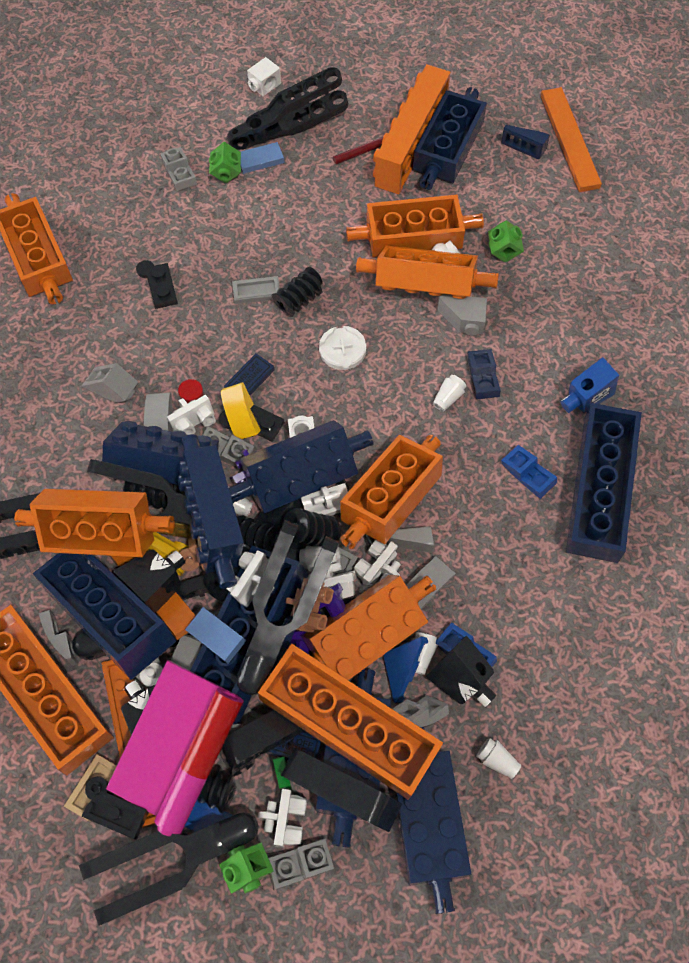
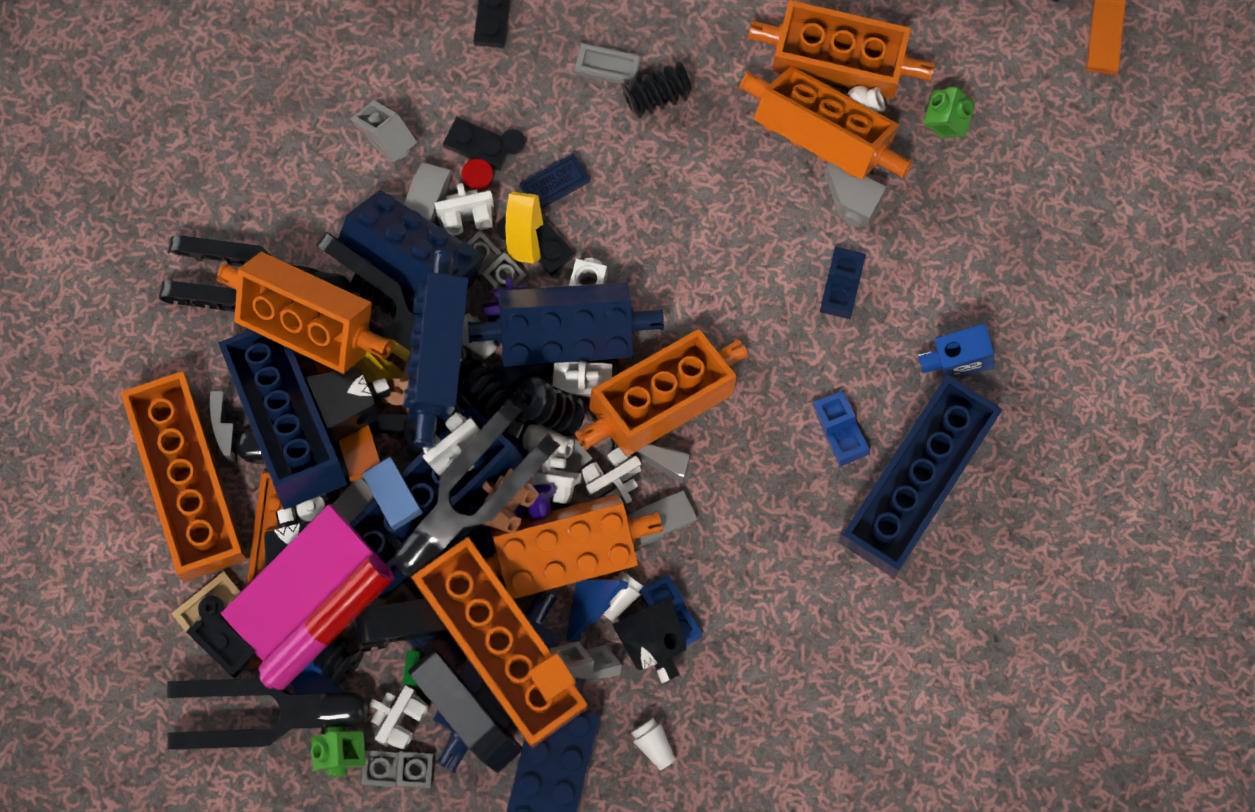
camera: 20 degrees right, 10 degrees up
(181, 369) = (483, 144): none -> black hinge
(342, 348) = (683, 183): white tile -> none
(406, 731) = (551, 677): none -> orange tile
(450, 391) = (787, 293): white cone -> none

